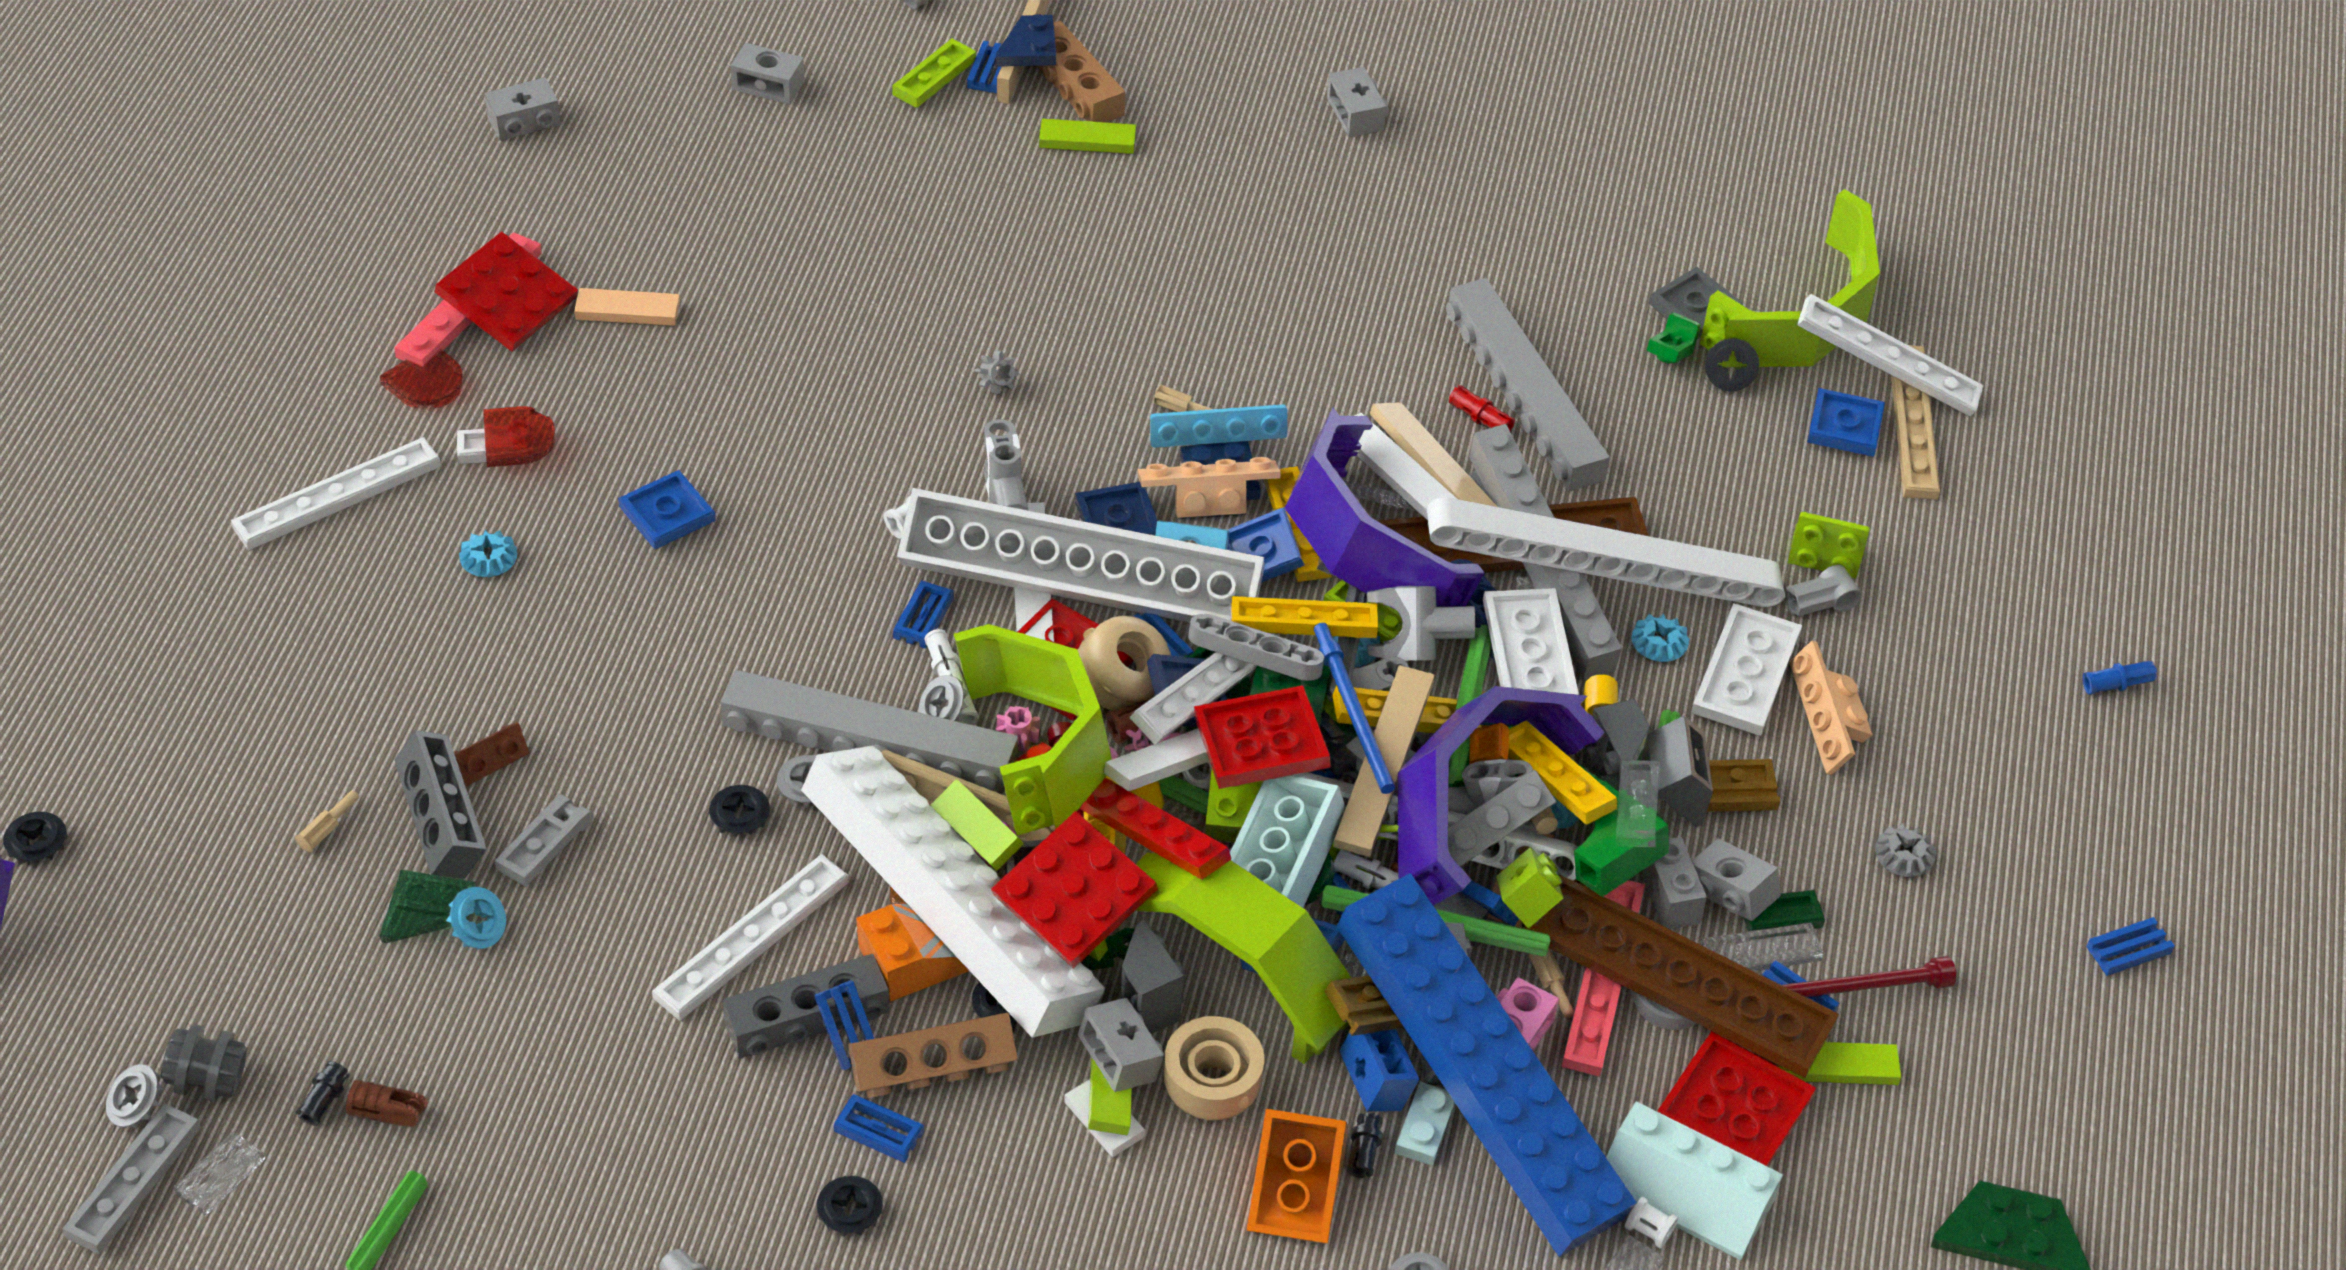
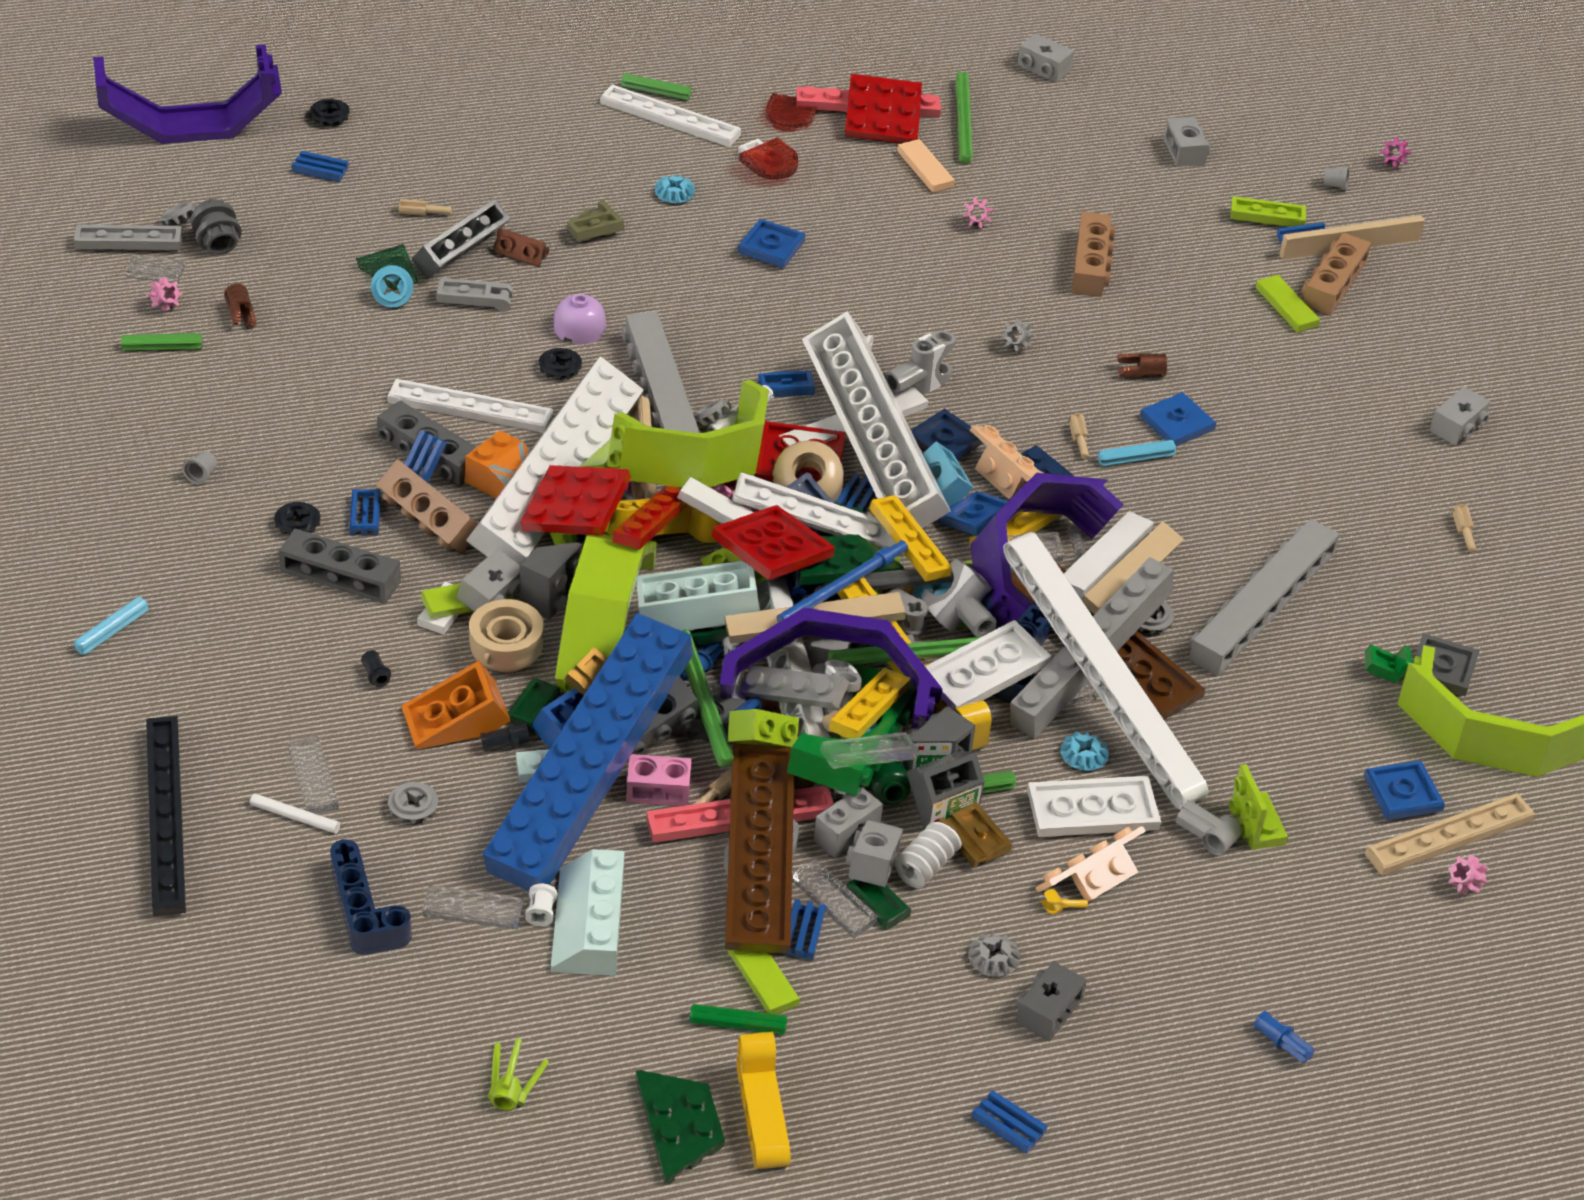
camera: 60 degrees right, 5 degrees down
(140, 893) = (320, 166): none -> blue tile
(269, 480) = (656, 87): none -> bright green axle
(300, 1179) = (157, 293): none -> bright pink gear
(326, 1088) = (221, 282): black pin -> none
(498, 657) = (596, 223): none -> olive wing
(566, 231) = (964, 117): none -> bright green axle
(674, 755) = (579, 319): none -> lavender cylinder
(760, 302) = (984, 216): none -> bright pink gear
(900, 244) = (1093, 254): none -> medium nougat brick
(932, 1234) = (340, 566): none -> dark grey brick
(1029, 43) = (1329, 234): dark blue wing -> none
(1113, 294) = (1147, 364): none -> copper hinge
(1175, 1229) = (378, 673): none -> black pin
(1210, 314) = (1178, 419): none -> blue plate
(1218, 425) = (1060, 446): medium azure bracket -> none
(1243, 371) = (1136, 453): none -> medium azure axle
(1256, 647) = (862, 520): light grey beam -> none
(1318, 1092) = (531, 701): none -> dark green tile
(1479, 408) = (1217, 584): red pin -> none
(1489, 743) = (872, 666): orange tile -> none
(1509, 185) = (1464, 525): none -> tan axle
(1738, 1099) = (676, 921): red plate -> none
(1743, 375) = (1381, 700): black gear -> none
(1751, 832) = (927, 854): none -> white piece
(1858, 766) = (1055, 904): none -> yellow hand
(1890, 355) = (1482, 781): white tile -> none
(1896, 1113) = (738, 1019): none -> green axle
(1938, 972) = (886, 1004): dark red piece -> none
(1991, 427) = (1468, 874): none -> bright pink gear
(1997, 833) = (1050, 1000): none -> dark grey brick
(2033, 1144) = (762, 1100): none -> yellow beam

